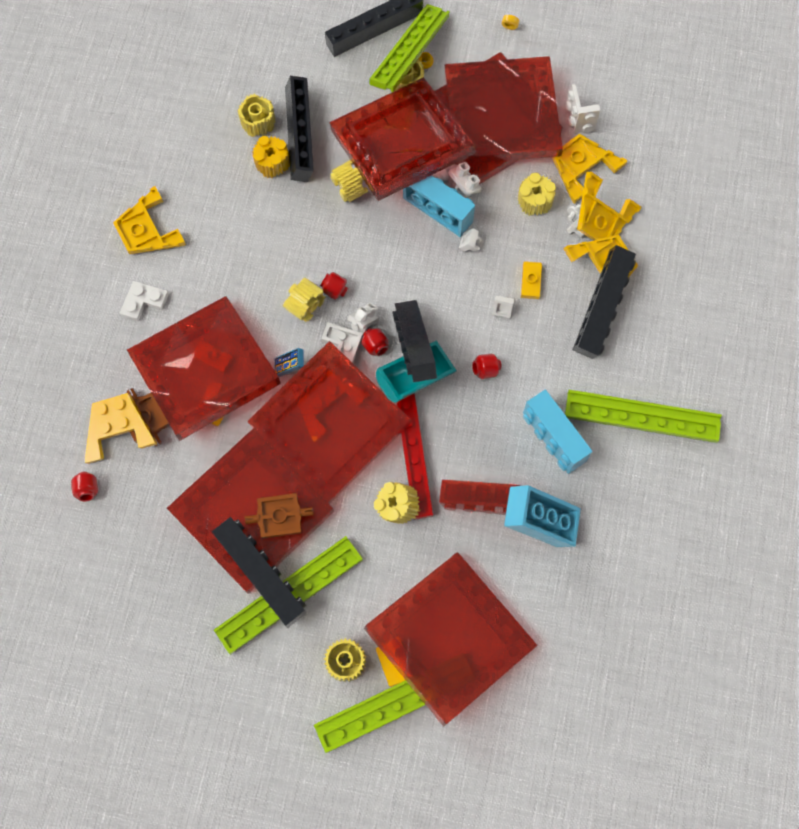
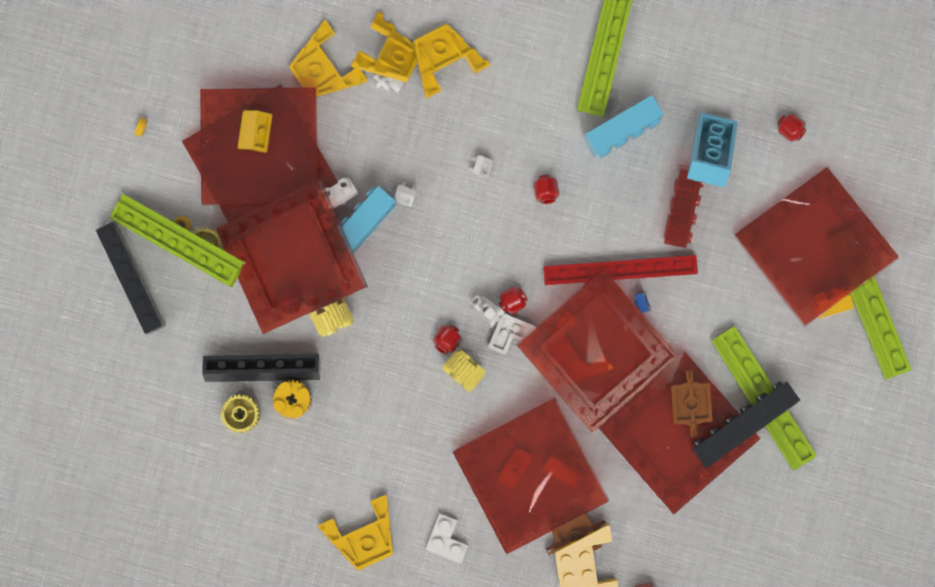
camera: 90 degrees left, 15 degrees up
(289, 362) = (531, 388): tile -> none
(339, 650) = (820, 351): light yellow brick -> none
(380, 465) = (642, 303): none -> blue plate
(397, 503) = (684, 288): light yellow brick -> none
(399, 385) = (554, 260): teal container -> none
(414, 341) = (526, 258): black brick -> none
(516, 100) = (255, 131): none -> yellow panel
(531, 280) = (452, 135): yellow plate -> none
(536, 194) = (356, 109): light yellow brick -> none
(575, 606) = (791, 127): none -> red head
(581, 118) = (271, 69): white bracket -> none
(604, 302) = (488, 63): black brick -> none

